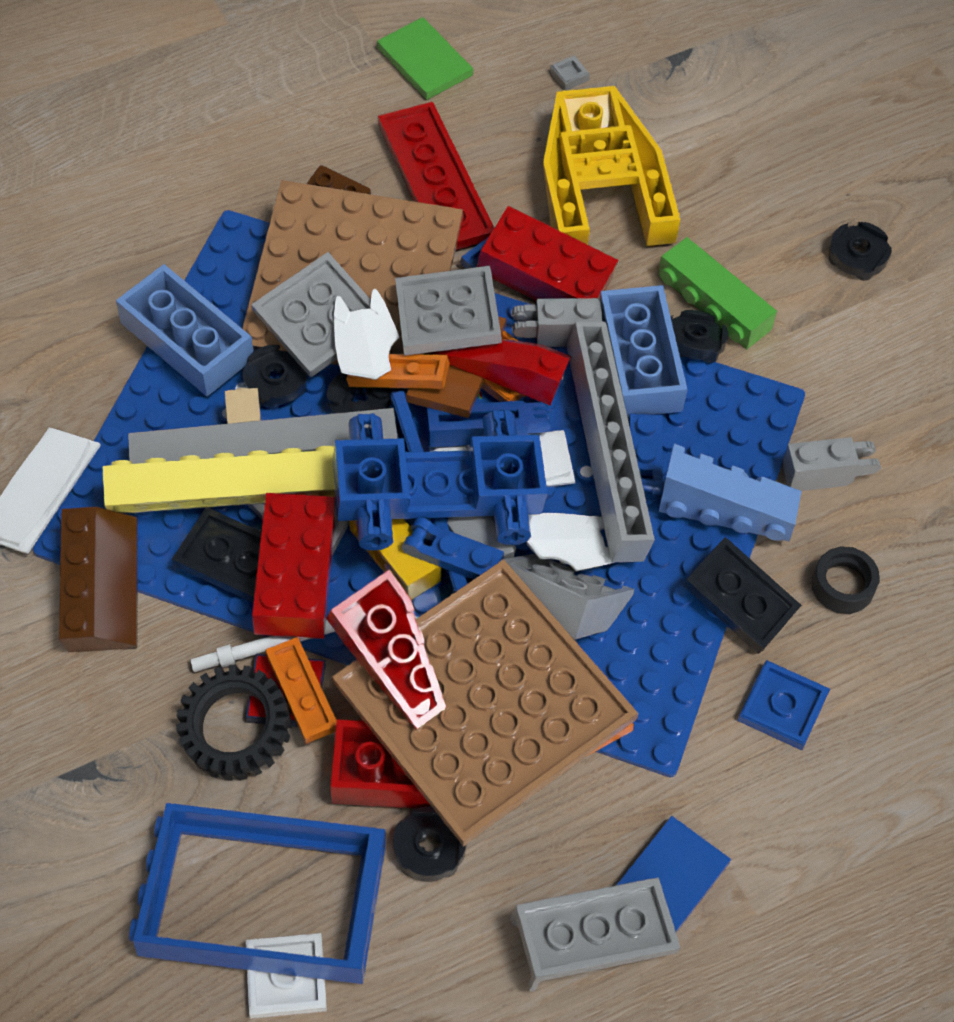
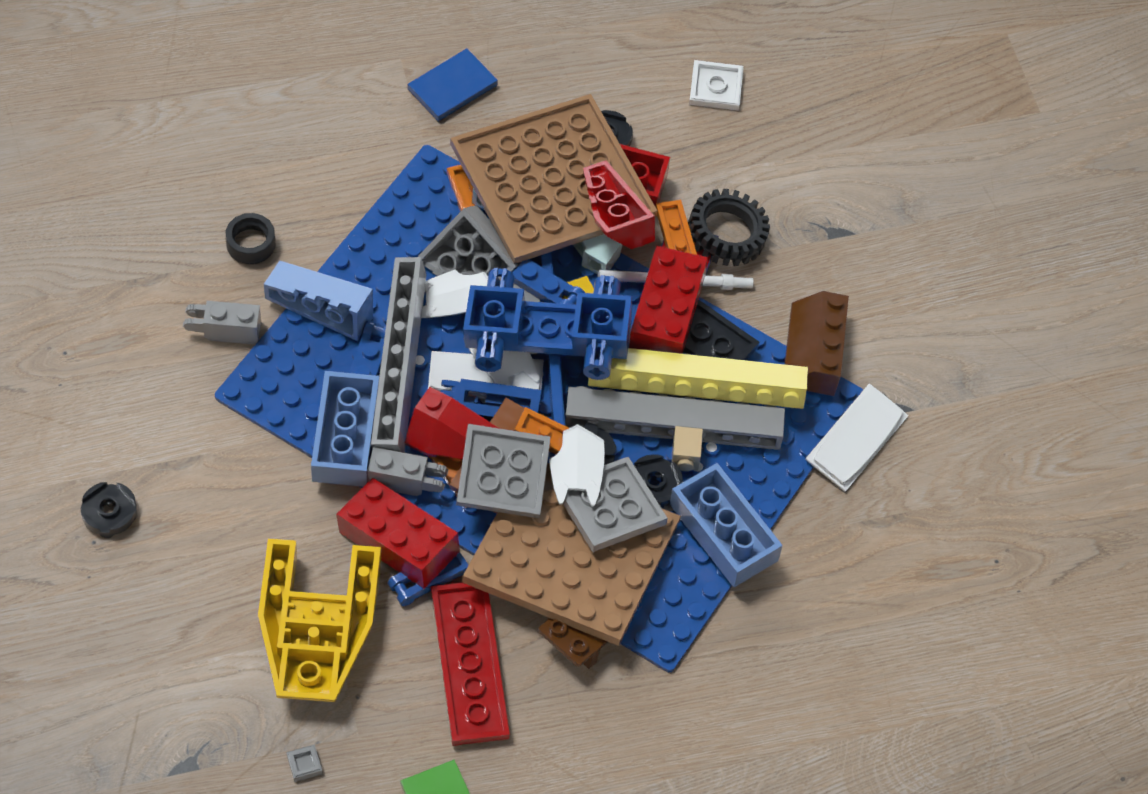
camera: 170 degrees left, 0 degrees up
(268, 830) = (735, 84): blue window -> none
(595, 930) = (515, 51): light grey plate -> none
(710, 339) = (276, 459): black plate -> none
(717, 292) = (255, 488): bright green brick -> none
(741, 595) = (335, 236): black plate -> none
(783, 705) = (331, 171): blue tile -> none

